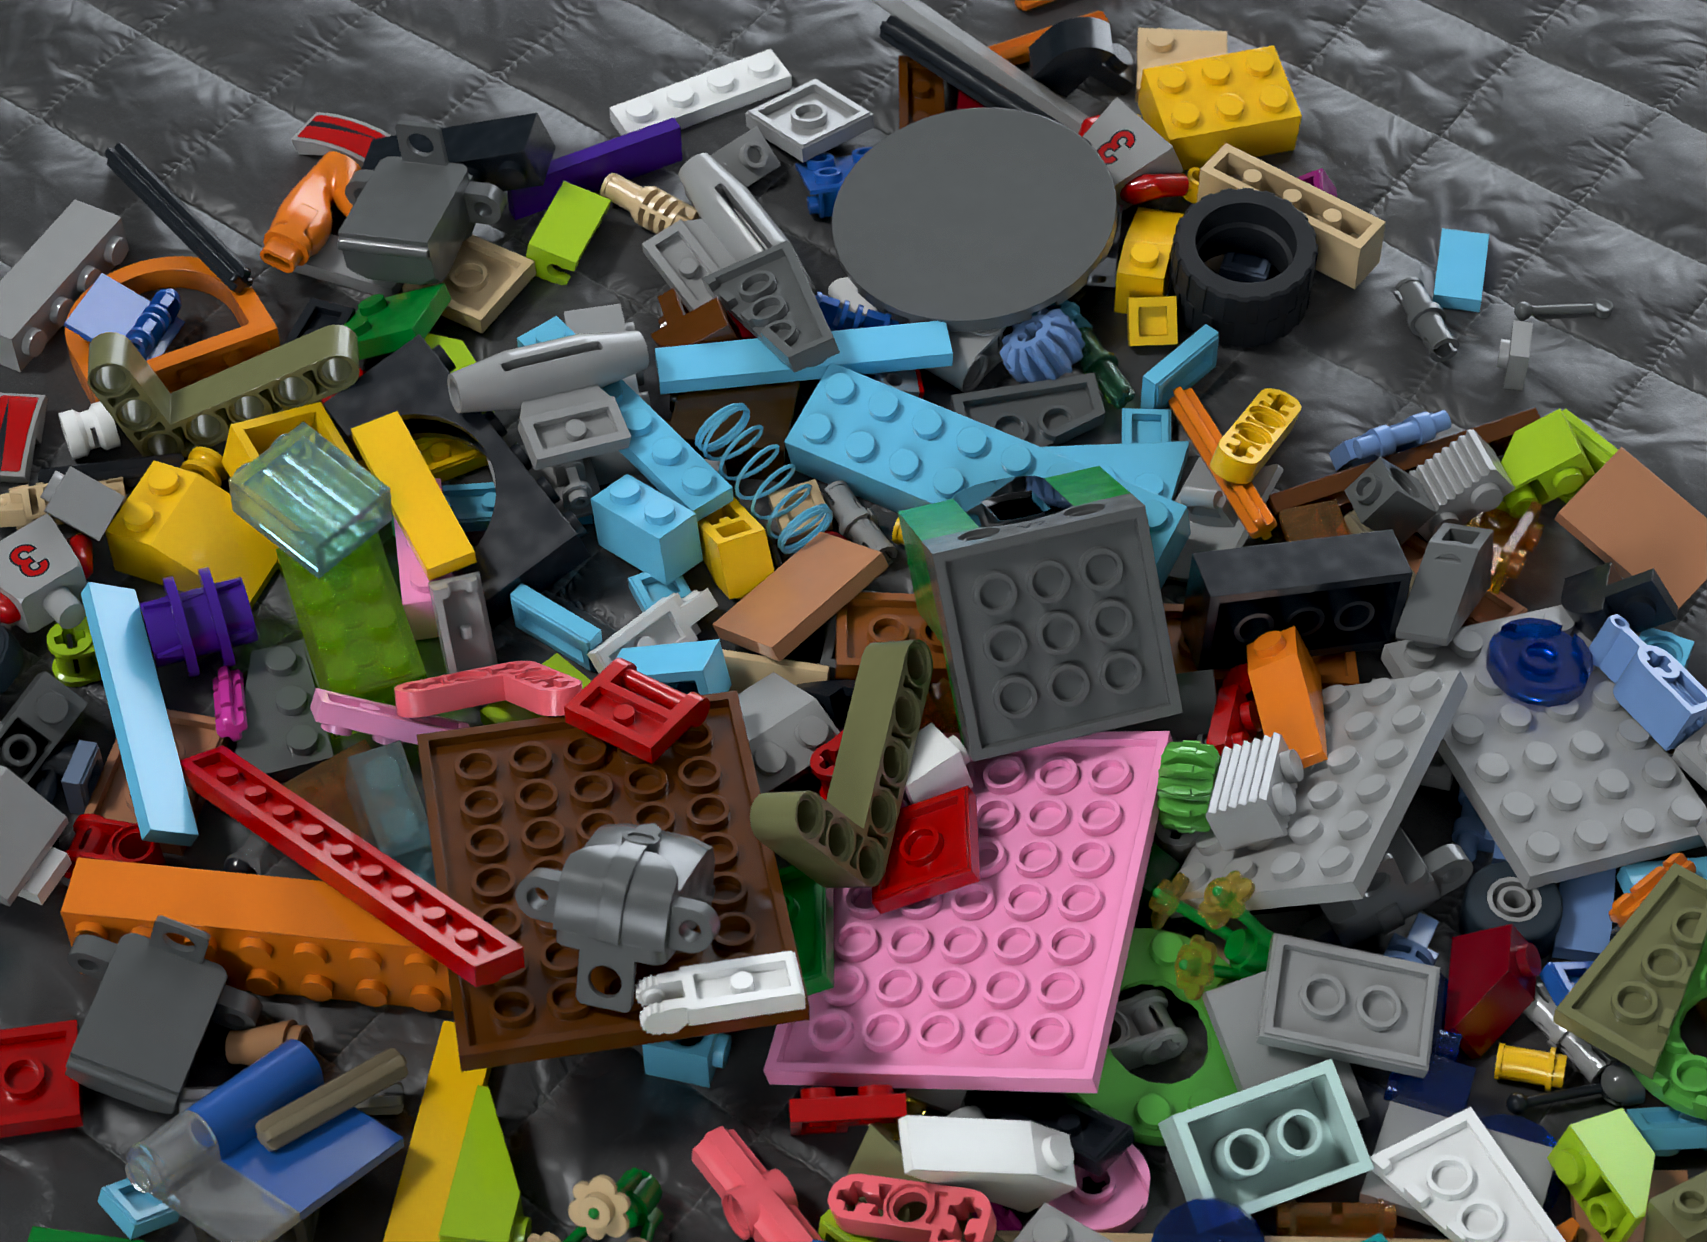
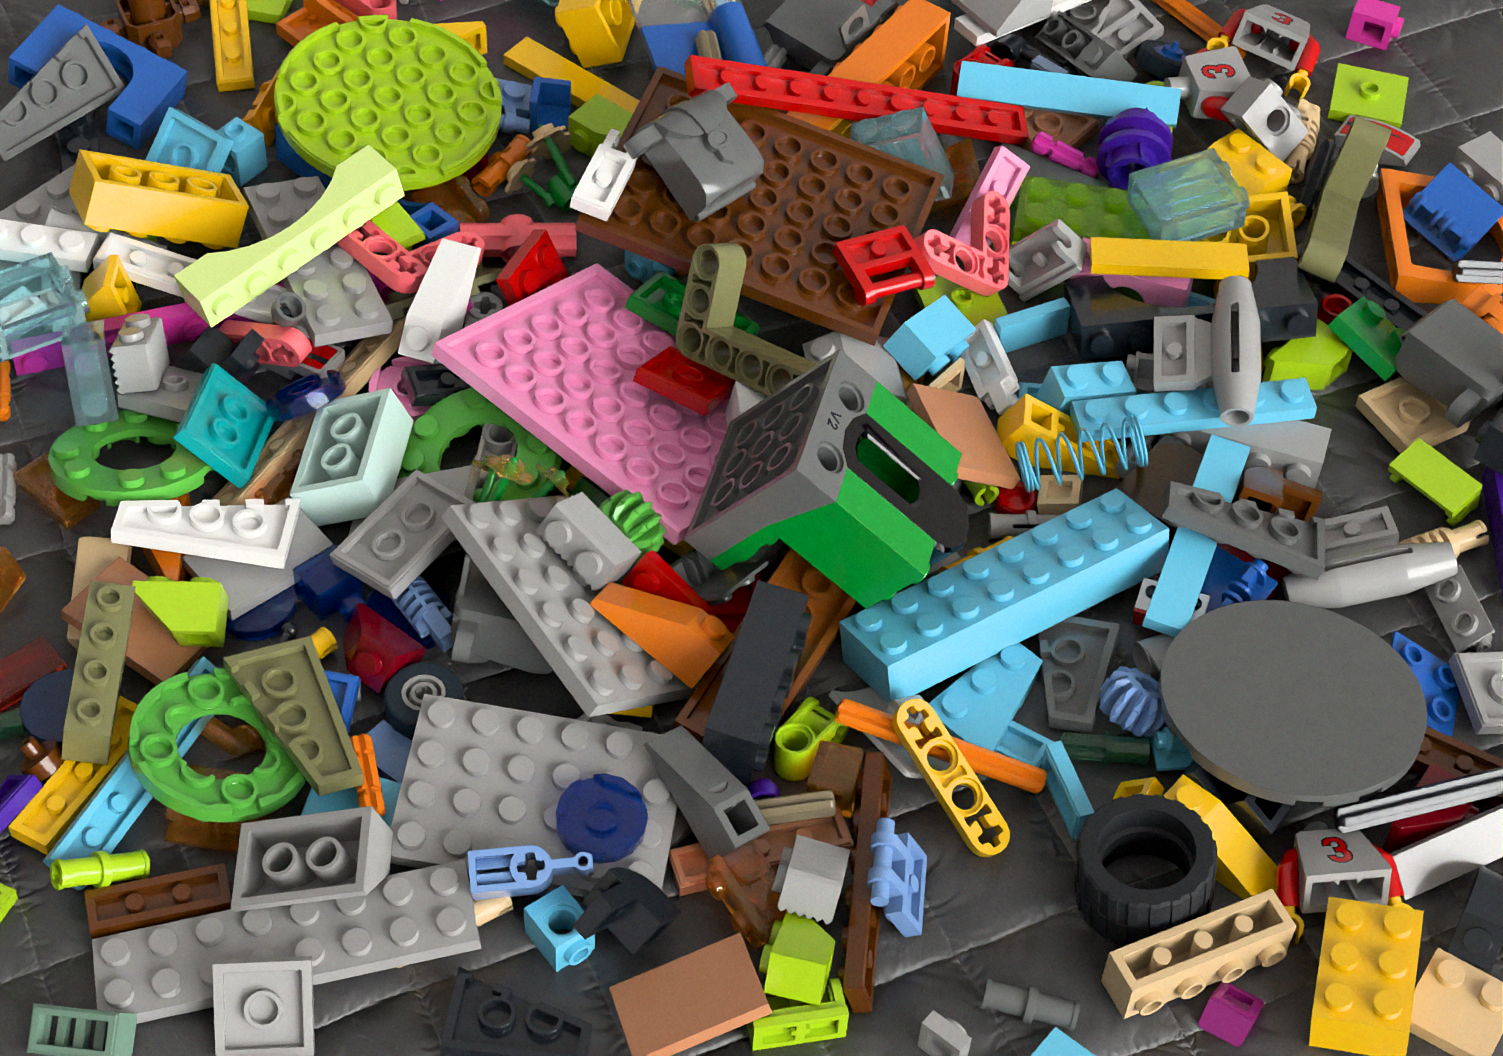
camera: 115 degrees right, 0 degrees up
(1390, 500) = (818, 830): dark grey brick -> none

